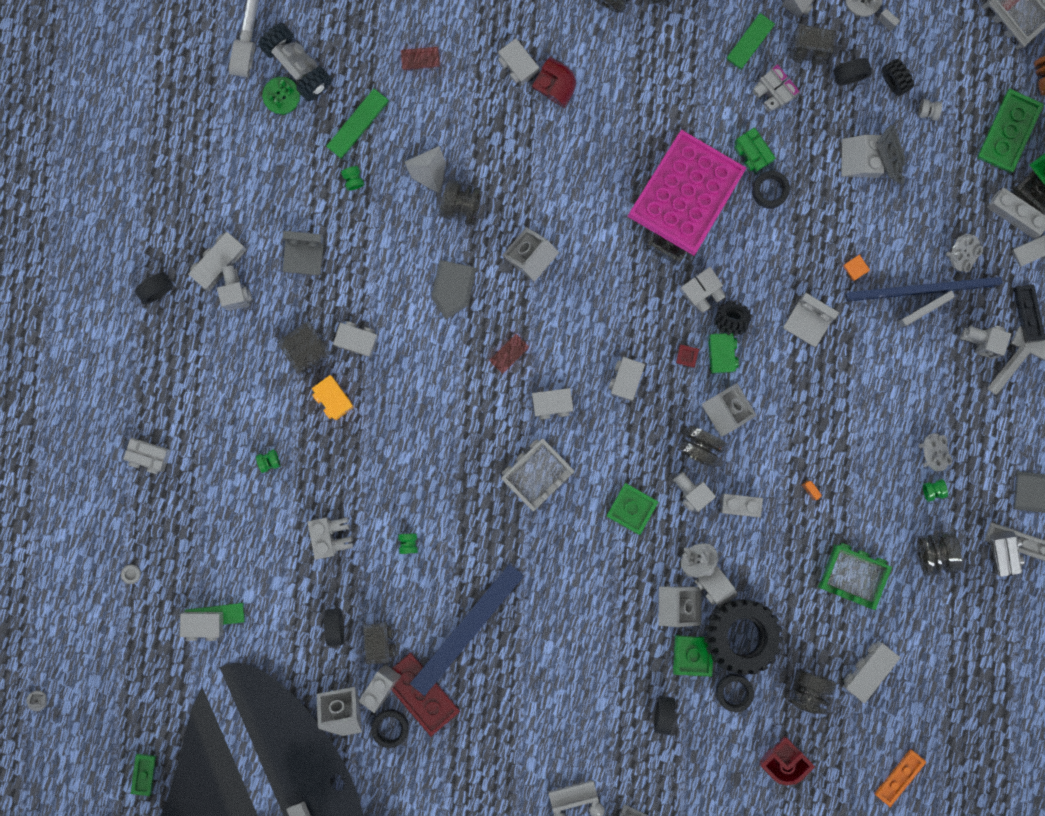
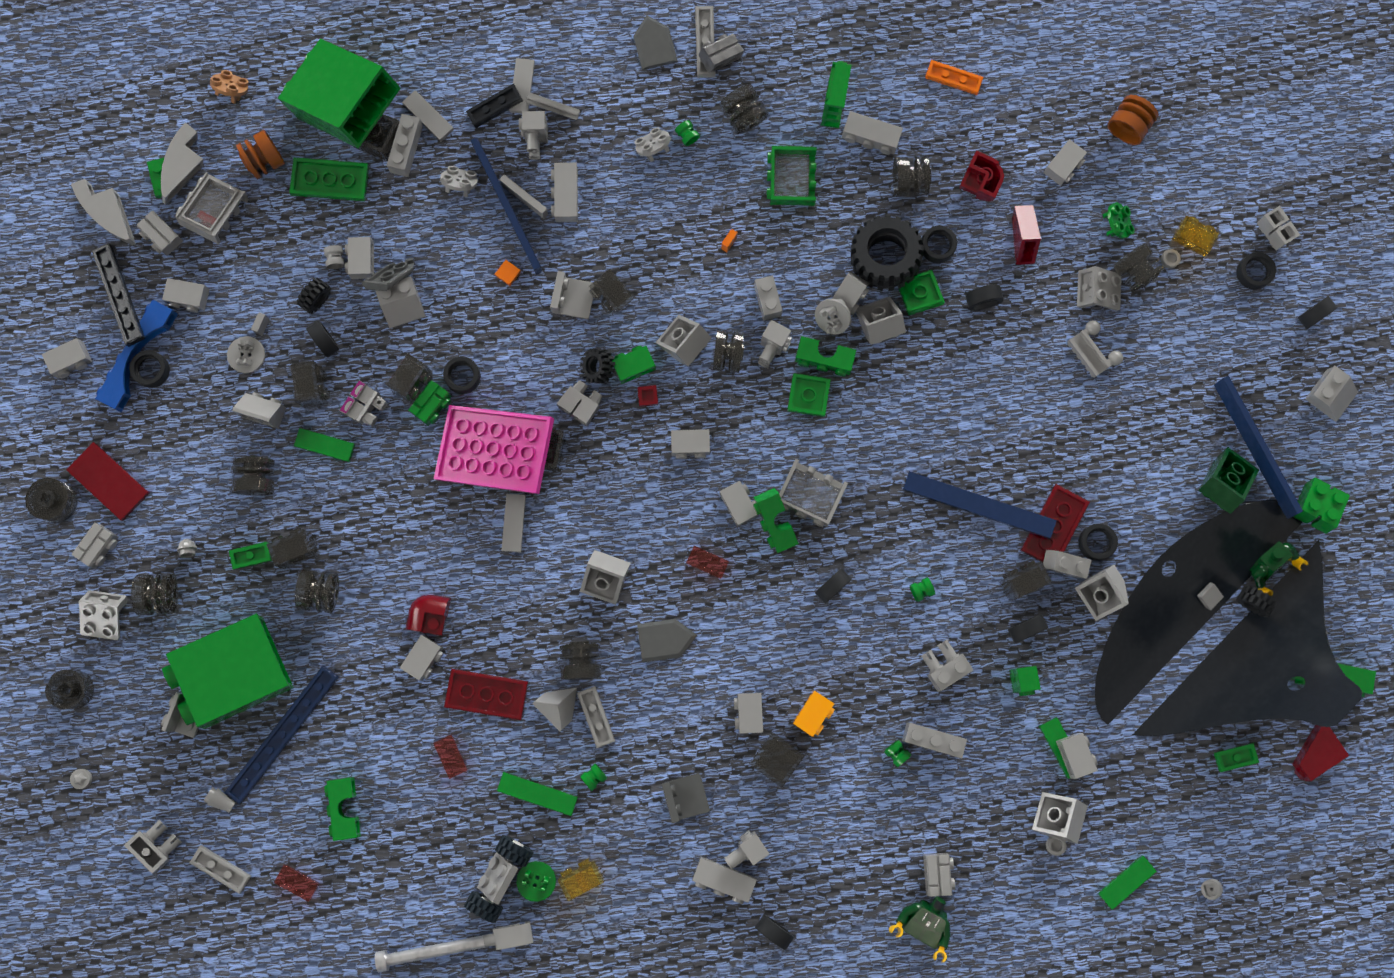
camera: 115 degrees left, 5 degrees down
(73, 625) = (1127, 882): none -> green tile
(108, 426) = (926, 923): none -> dark green torso
(153, 586) = (1060, 817): none -> light grey slope
(266, 134) = (580, 879): none -> clear yellow brick
(266, 499) = (934, 740): none -> light grey brick
(287, 604) = (1025, 680): none -> green brick
(406, 200) = (596, 717): none -> light grey tile
(442, 460) = (833, 585): none -> black tyre
(464, 109) = (486, 694): none -> dark red tile
(537, 427) = (768, 506): none -> green arch
(611, 188) = (513, 523): none -> light grey tile
(652, 551) = (809, 355): none -> green arch
(713, 782) = (1025, 234): none -> slope
(783, 138) = (410, 379): none -> clear smoke brick
(799, 355) = (610, 292): none -> clear smoke brick
(917, 350) = (565, 192): none -> light grey brick
(920, 133) = (360, 257): none -> light grey brick
(921, 649) = (836, 94): none -> green window

